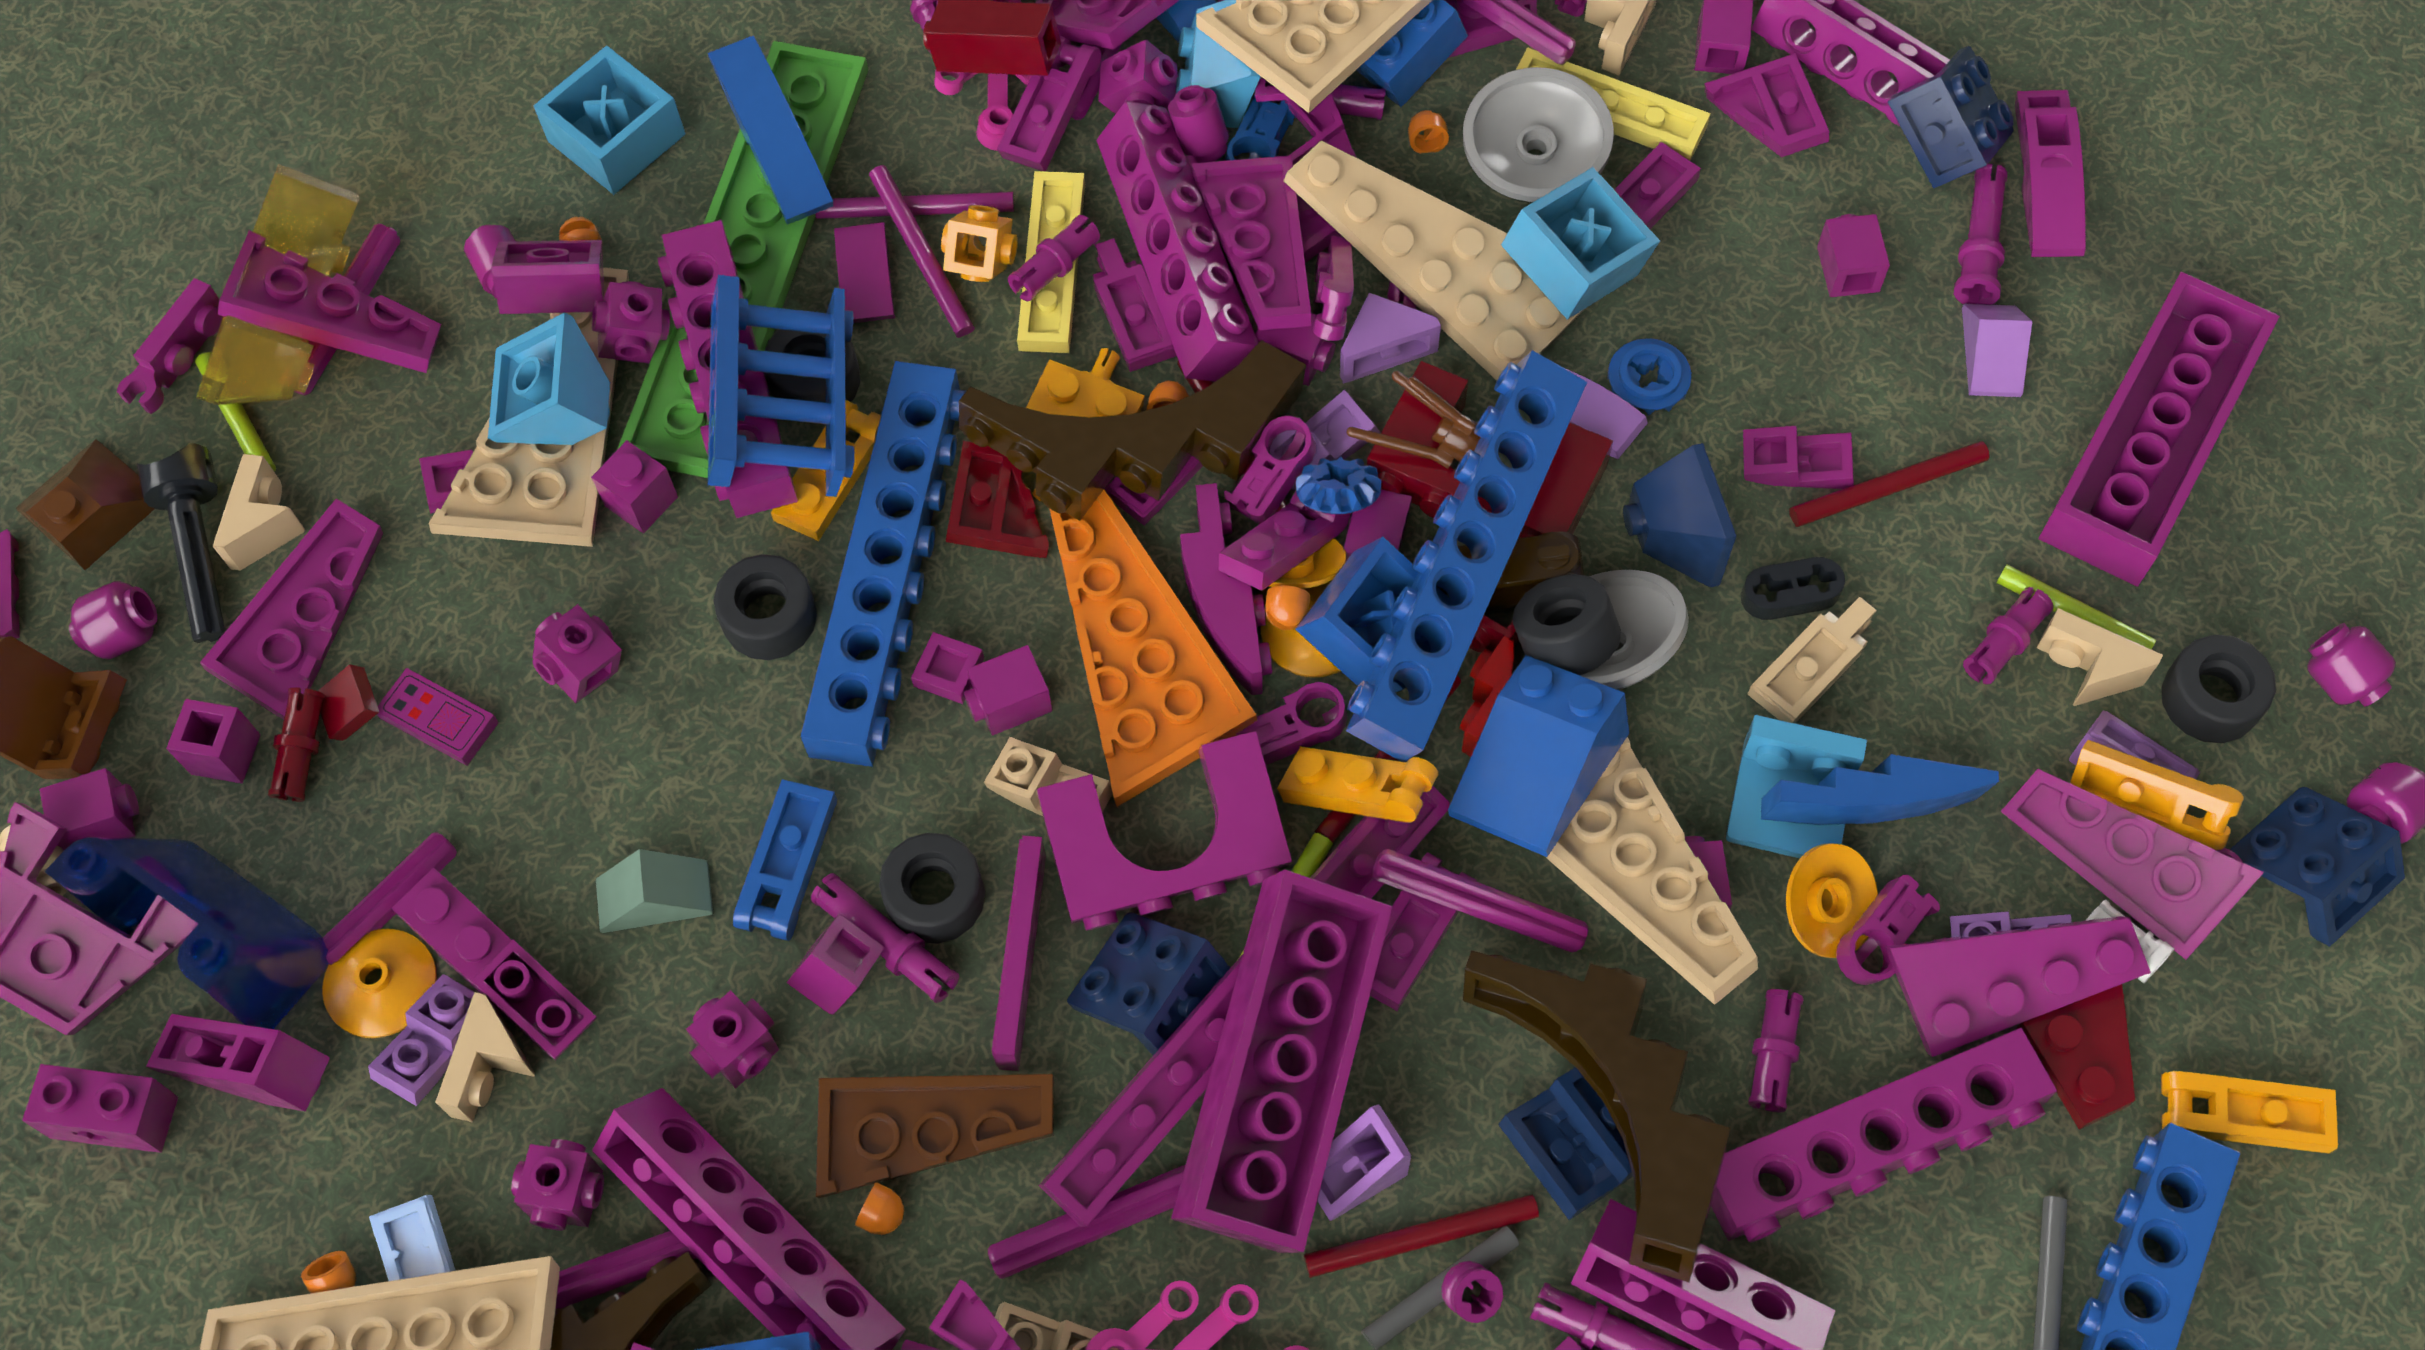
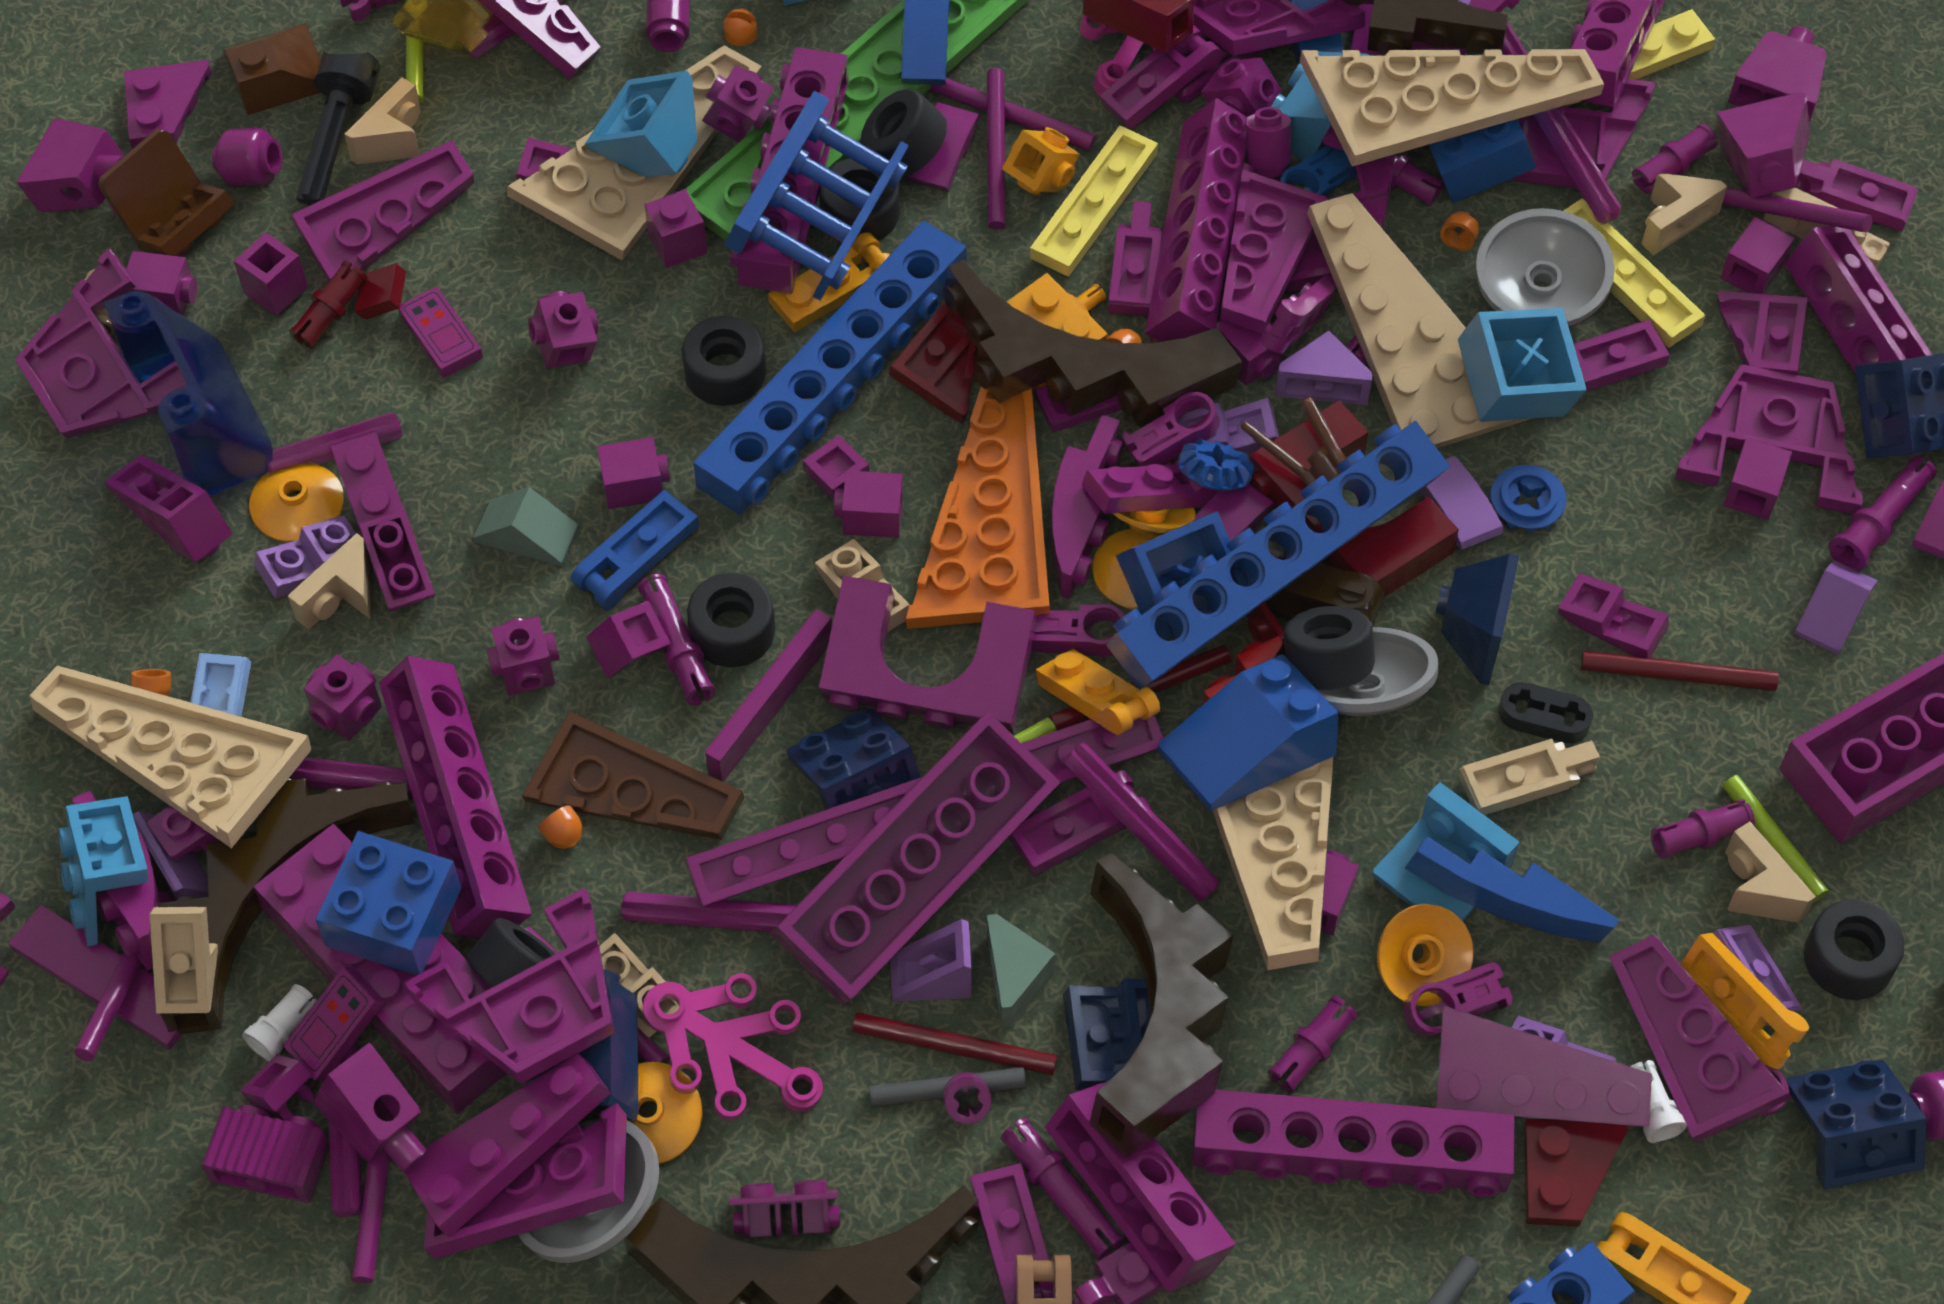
camera: 25 degrees right, 5 degrees down
(100, 1108) = (57, 493): magenta brick -> none
(548, 276) = (694, 42): magenta slope -> none
(736, 776) = (632, 472): none -> magenta brick
(815, 265) = (909, 119): none -> black tyre
(1053, 258) = (1092, 196): magenta pin -> none
(1286, 606) = (1119, 535): orange hinge -> none
(1440, 1122) = (1018, 967): none -> sand green slope
(1836, 178) = (1782, 410): none -> magenta wing

